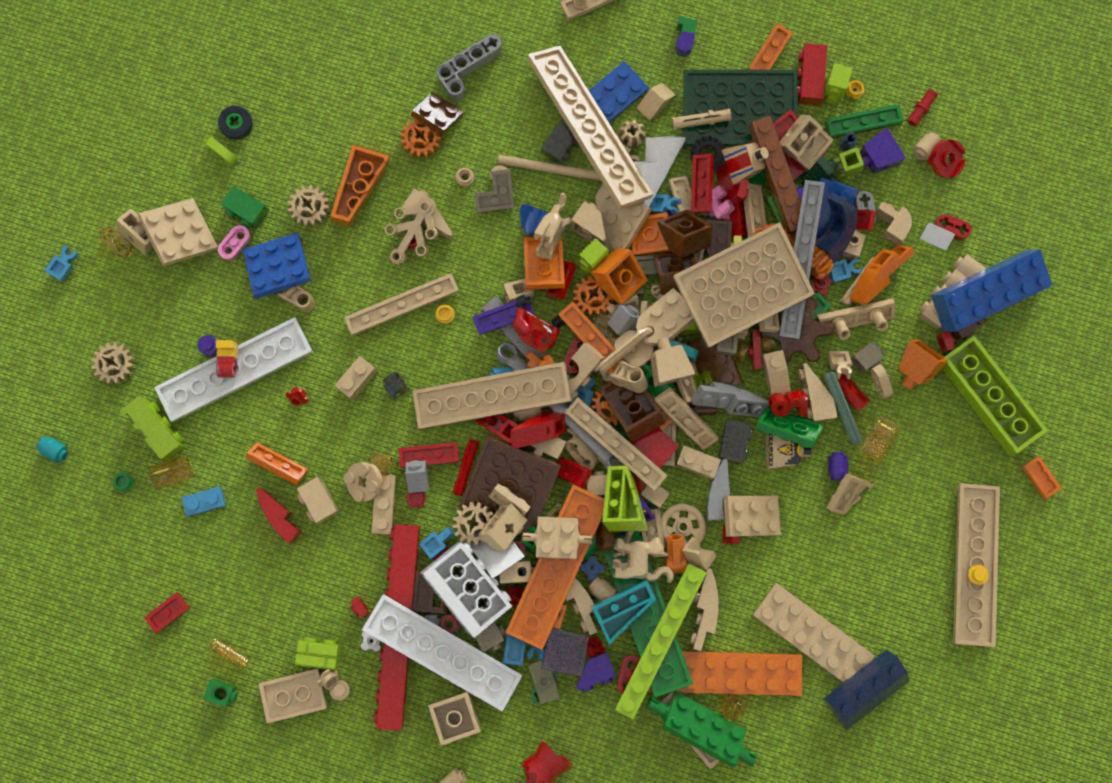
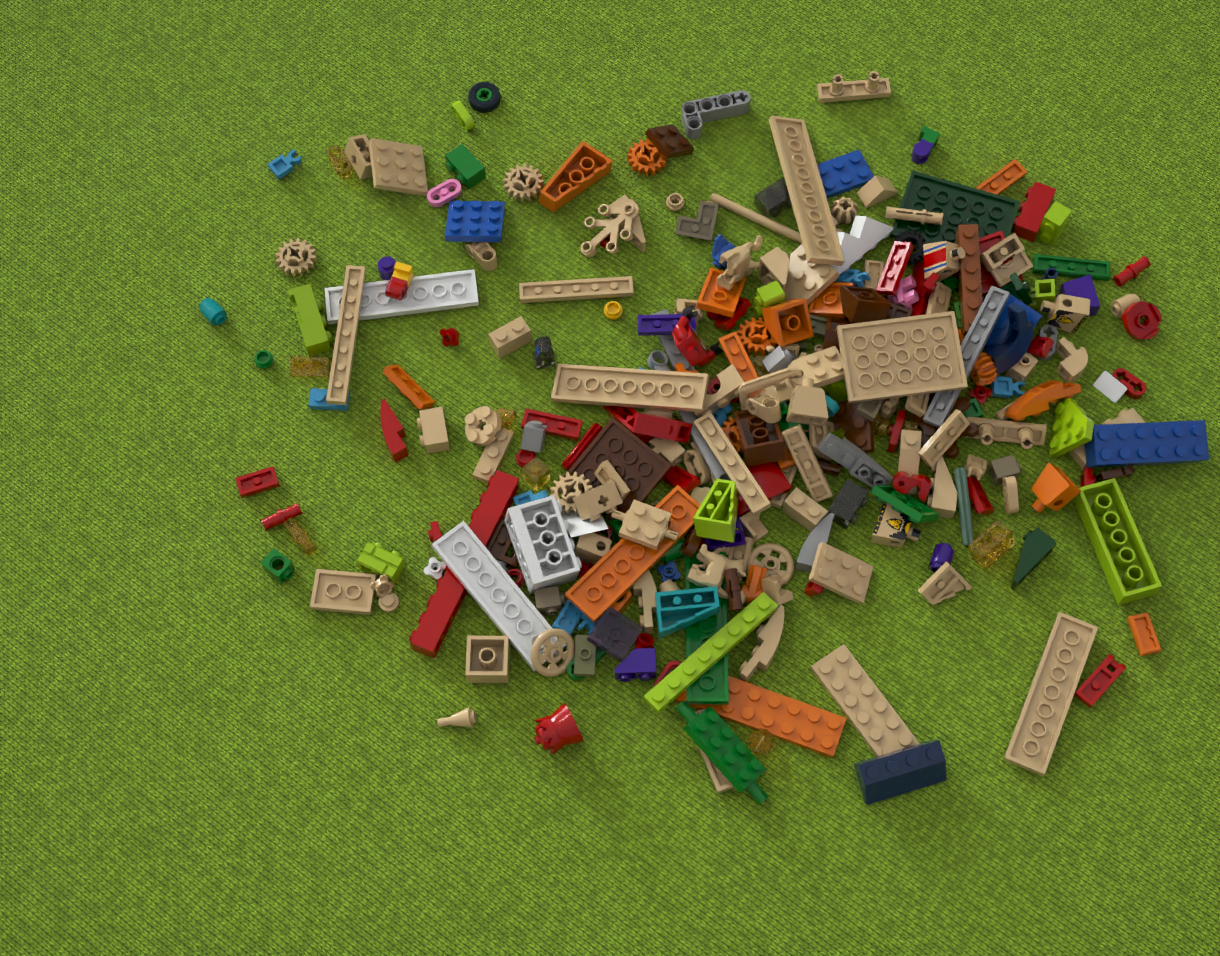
camera: 20 degrees right, 15 degrees down
(195, 432) = (346, 335): none -> tan plate
(204, 640) = (281, 516): none -> red pin
(432, 512) = (535, 473): none -> clear yellow brick
(513, 690) = (545, 639): none -> tan plate
(661, 573) = (733, 589): none -> reddish brown pin
(805, 349) = (943, 438): none -> tan plate
(855, 85) = (1074, 233): yellow plate -> none
(878, 175) = (1066, 312): none -> tan torso
(917, 296) = (1070, 428): none -> lime plate
(917, 435) = (1034, 550): none -> dark green slope
(978, 574) = (1048, 698): yellow plate -> none
(1016, 537) = (1099, 681): none -> red plate

